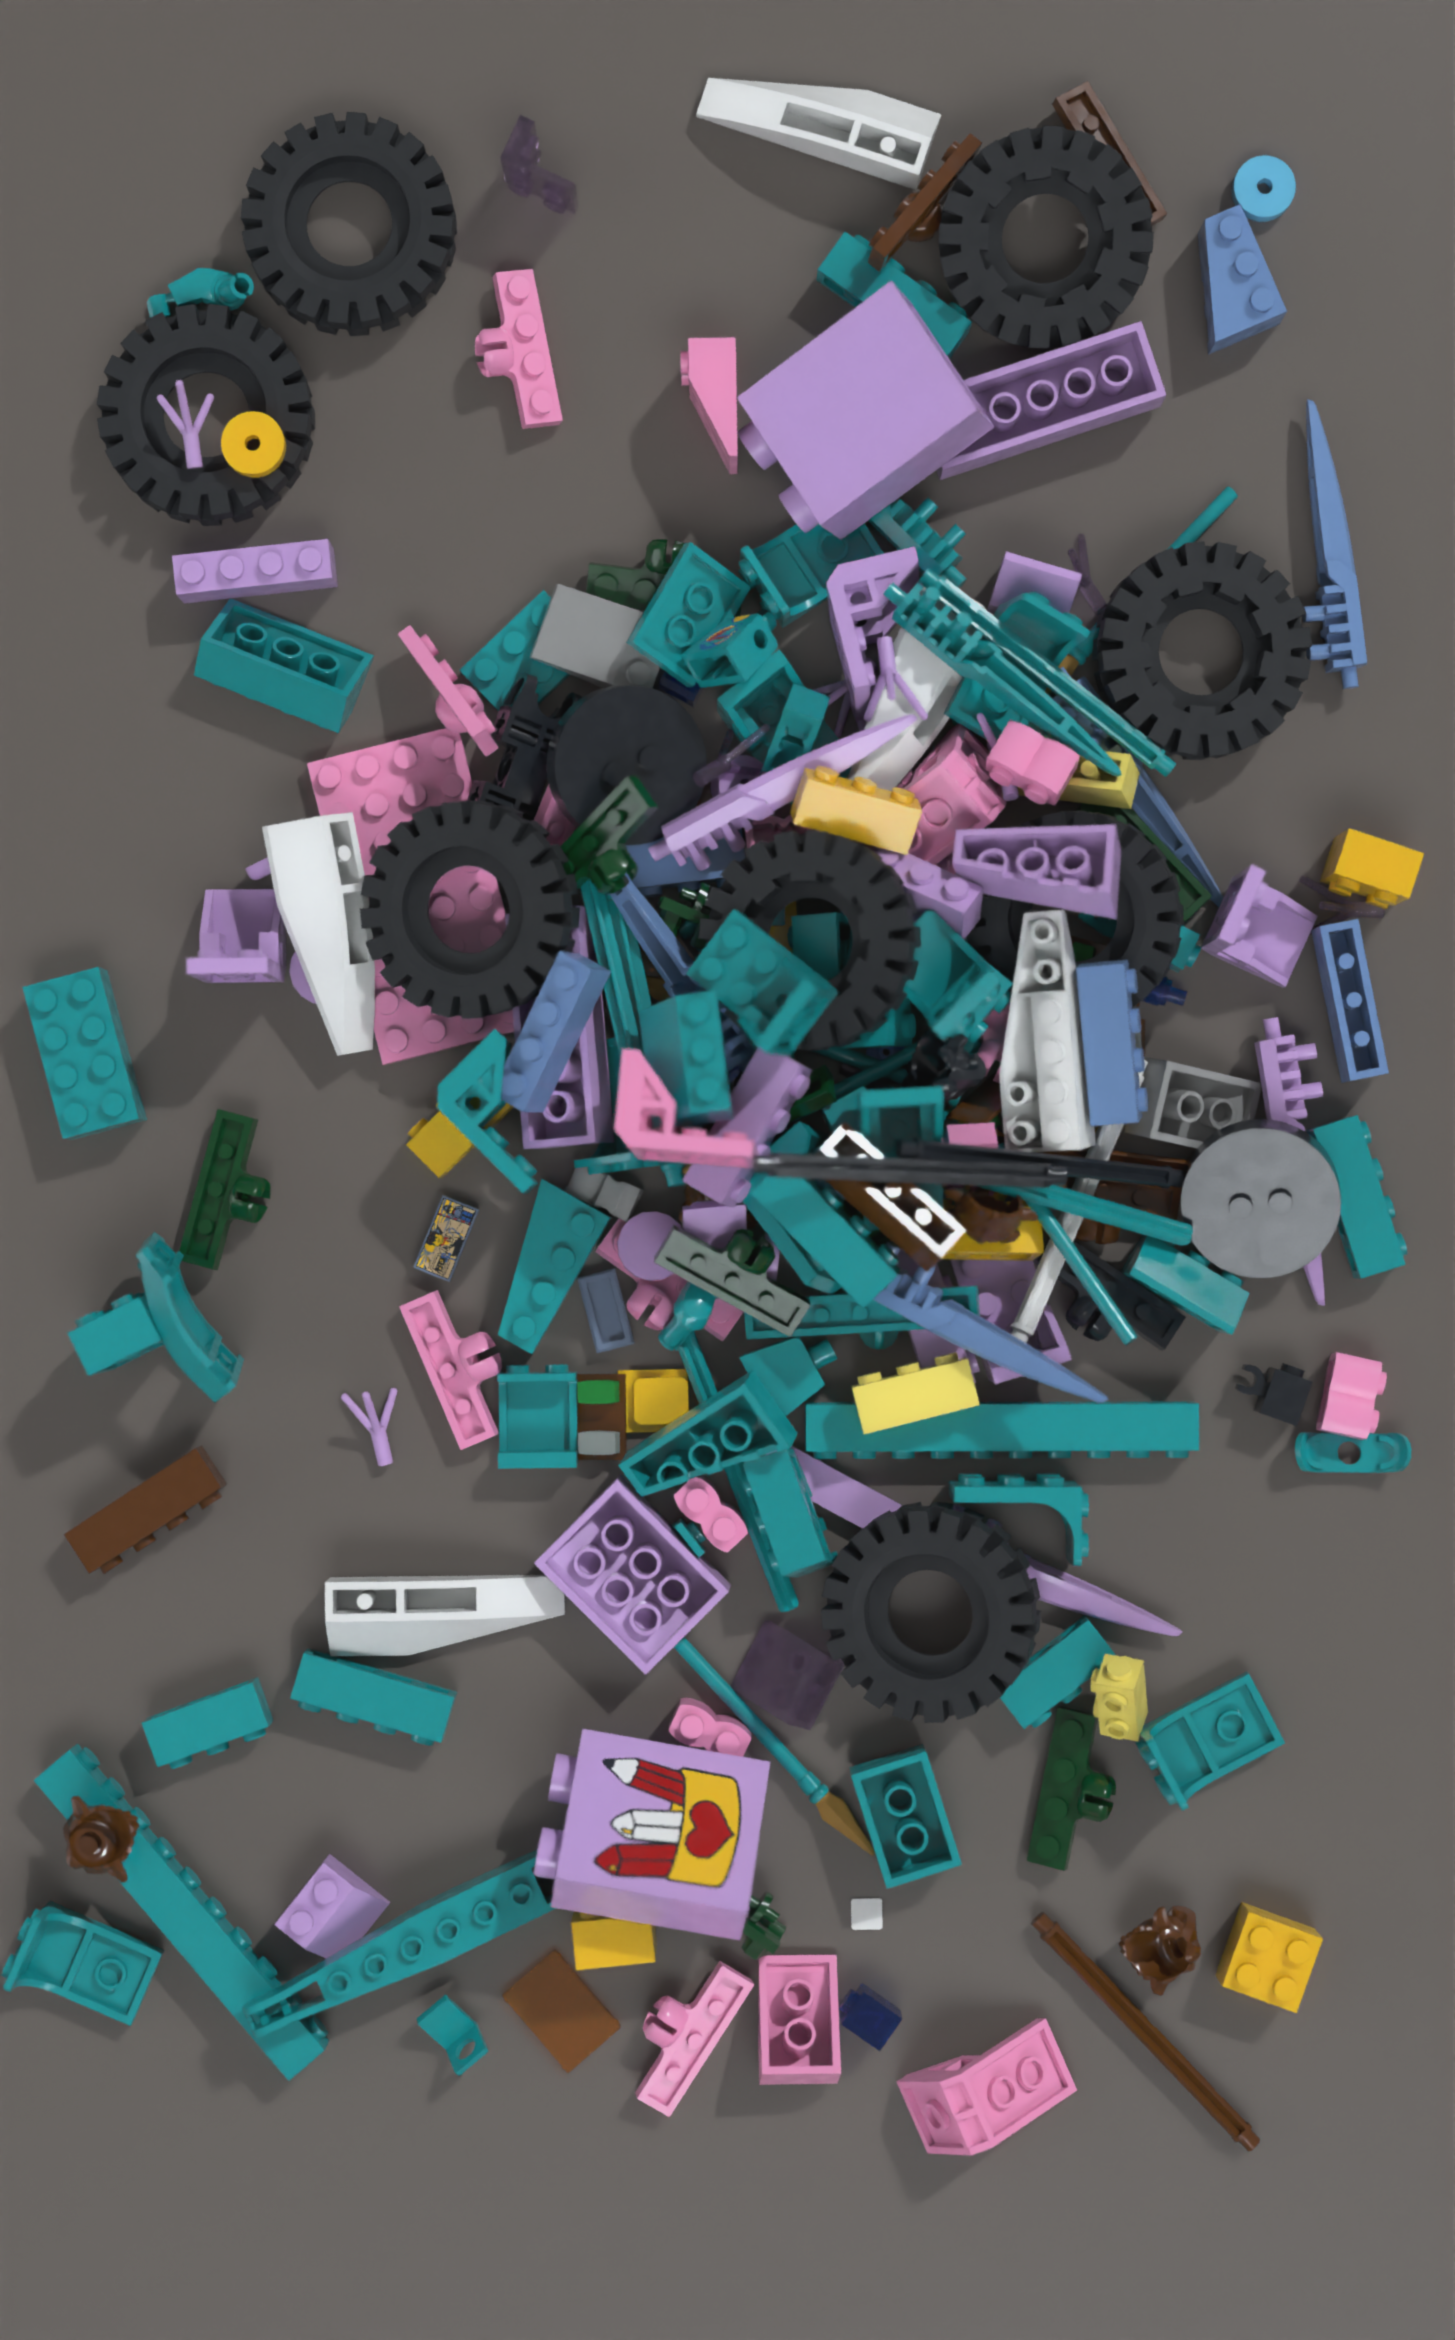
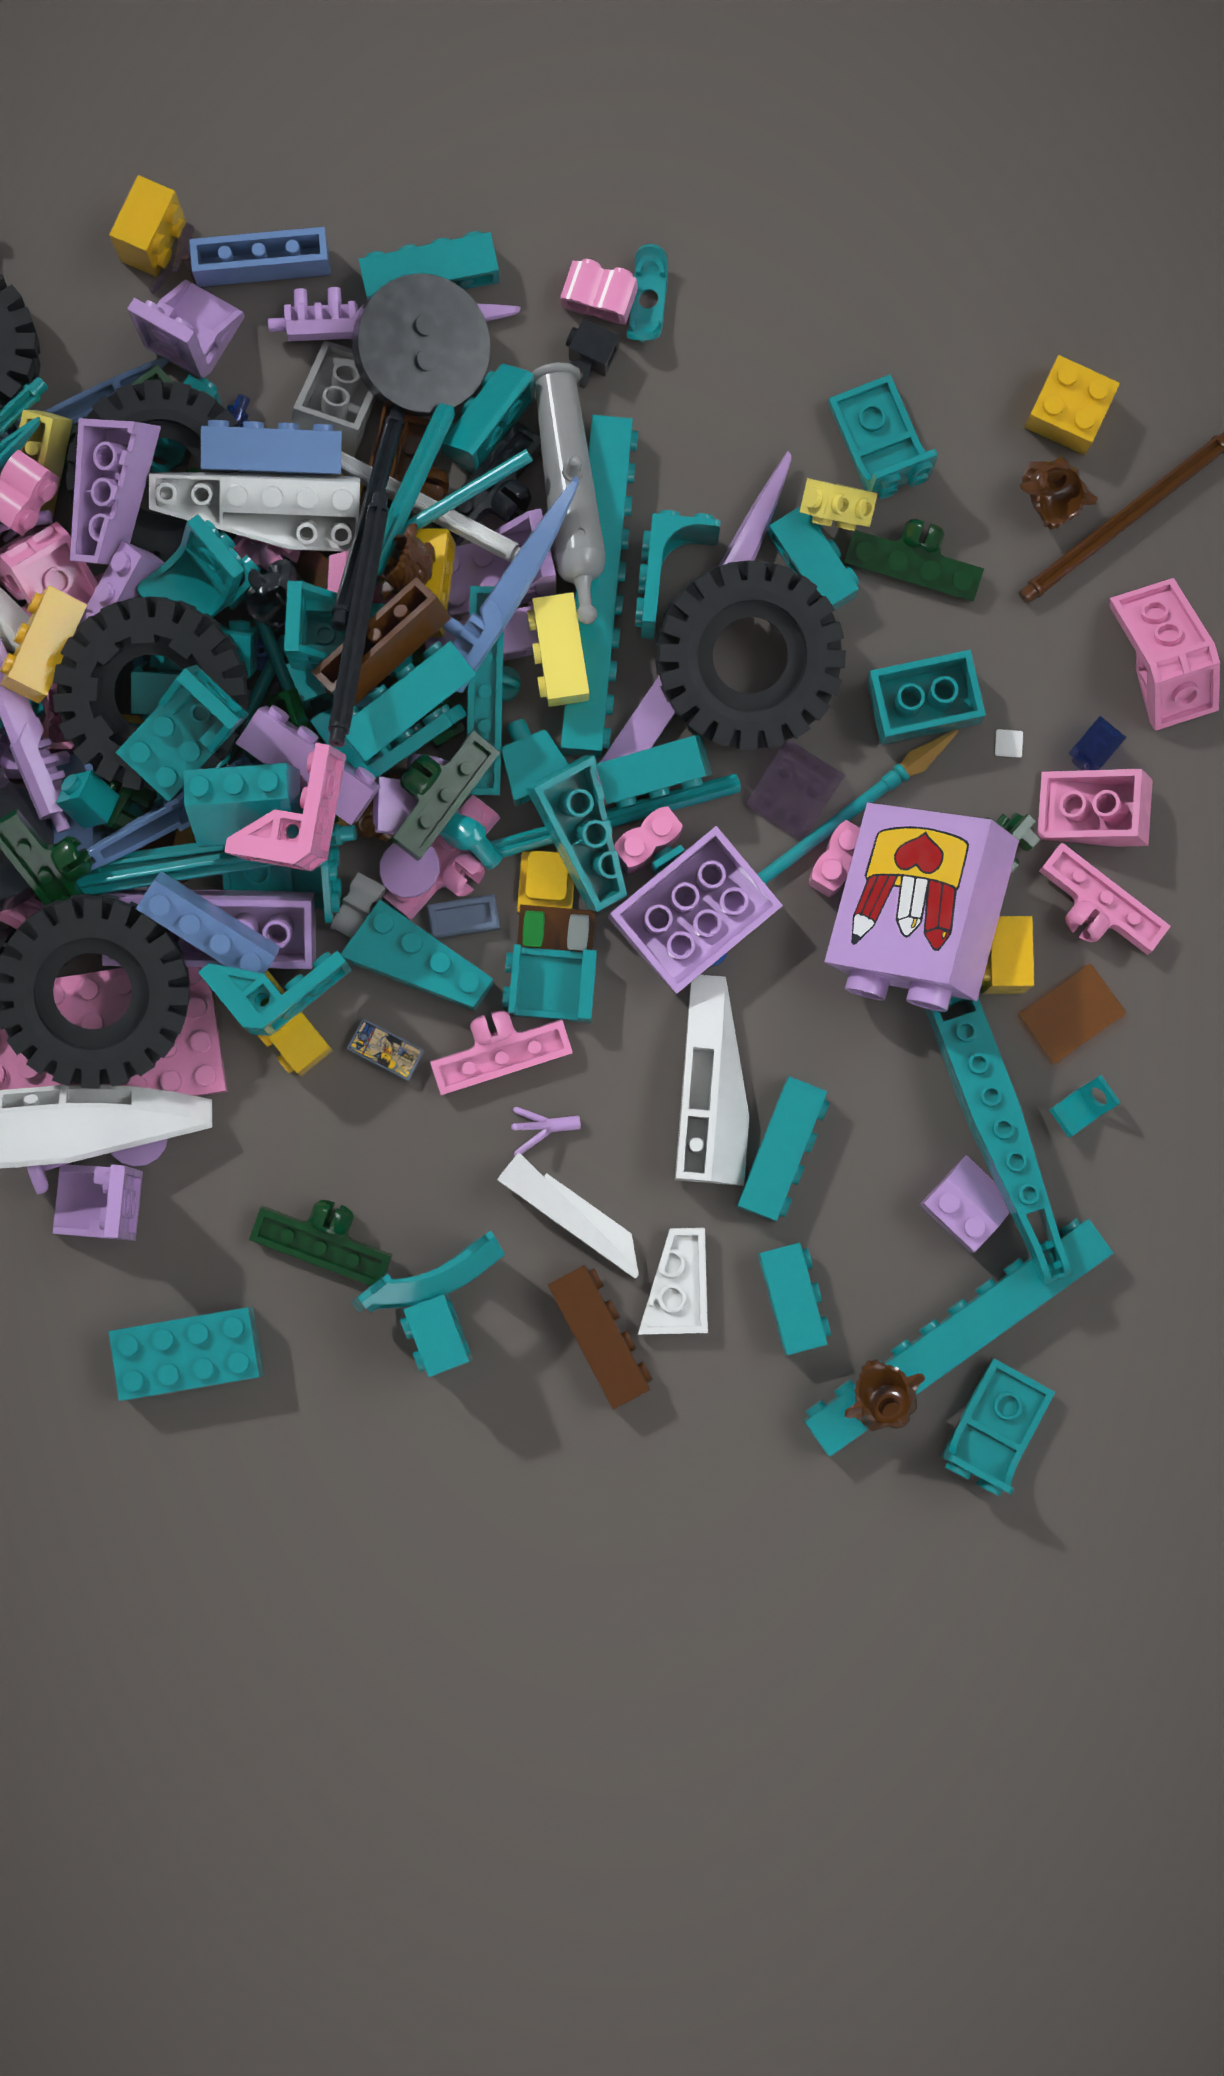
camera: 90 degrees left, 5 degrees down
(209, 1593) = (679, 1287): none -> white wing
(280, 1465) = (571, 1213): none -> white wedge
(686, 879) = (87, 799): none -> teal brick
(1129, 1381) = (579, 542): none -> light grey piece

